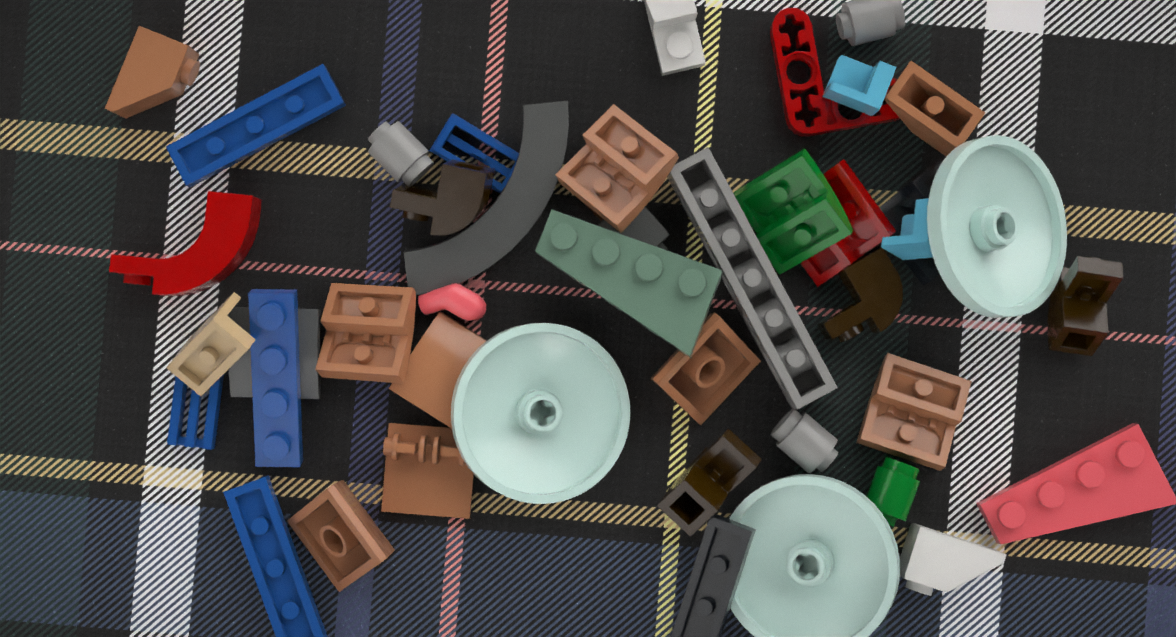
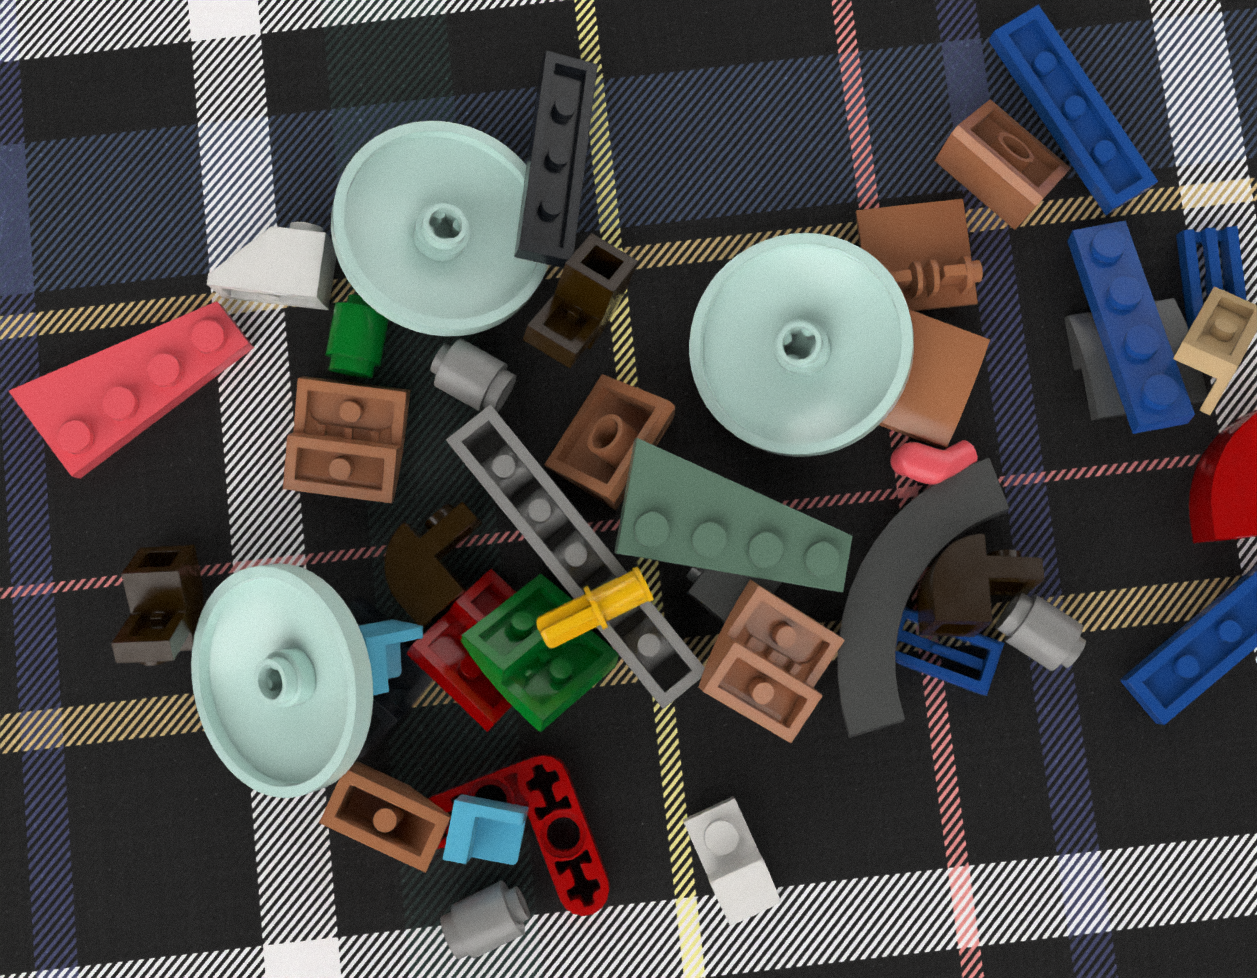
camera: 170 degrees right, 5 degrees down
(367, 332) = (1030, 402): nougat slope -> none
(747, 231) = (594, 608): none -> yellow axle

